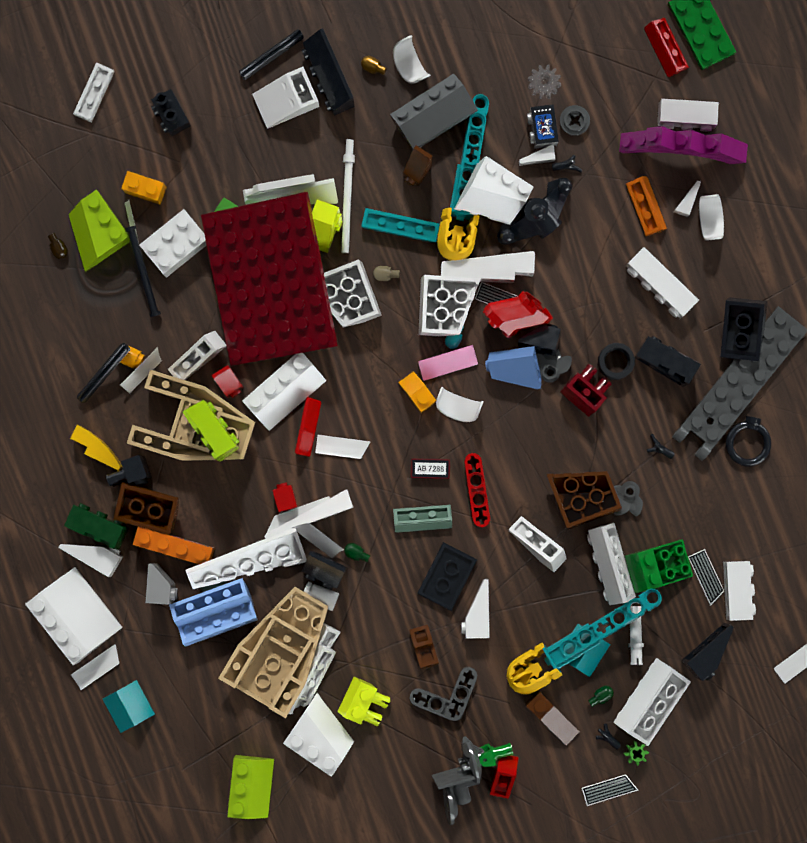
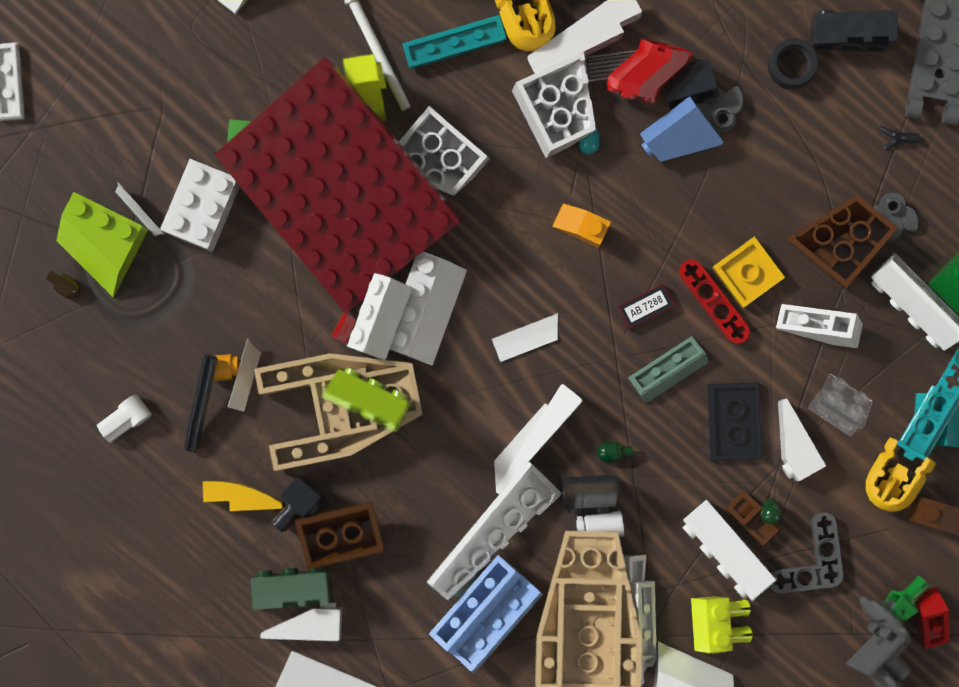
camera: 25 degrees left, 0 degrees up
(54, 355) = (130, 414): none -> white piece
(142, 271) = (185, 263): black bar -> none
(144, 187) = (128, 160): light orange brick -> none
(160, 586) = (406, 618): light grey slope -> none
(171, 113) = (111, 55): black brick -> none
(173, 546) = (395, 562): orange brick -> none
(197, 356) = (300, 323): white slope -> none
(250, 380) = (379, 316): none -> white brick
(285, 497) = (494, 432): red brick -> none
(308, 427) = (476, 336): red slope -> none
(318, 539) = (562, 460): white sticker -> none
(320, 190) = (340, 48): white wedge -> none
(385, 273) = (467, 107): dark tan cylinder -> none
(395, 658) = (729, 550): none -> white brick
(437, 648) = (771, 512): none -> dark green cylinder
(447, 362) = (597, 172): bright pink slope -> none
(457, 406) = (641, 216): white piece -> none
(510, 483) = (748, 272): none -> yellow plate
(523, 604) = (841, 405): none -> clear bracket
(583, 393) = (778, 121): dark red brick -> none

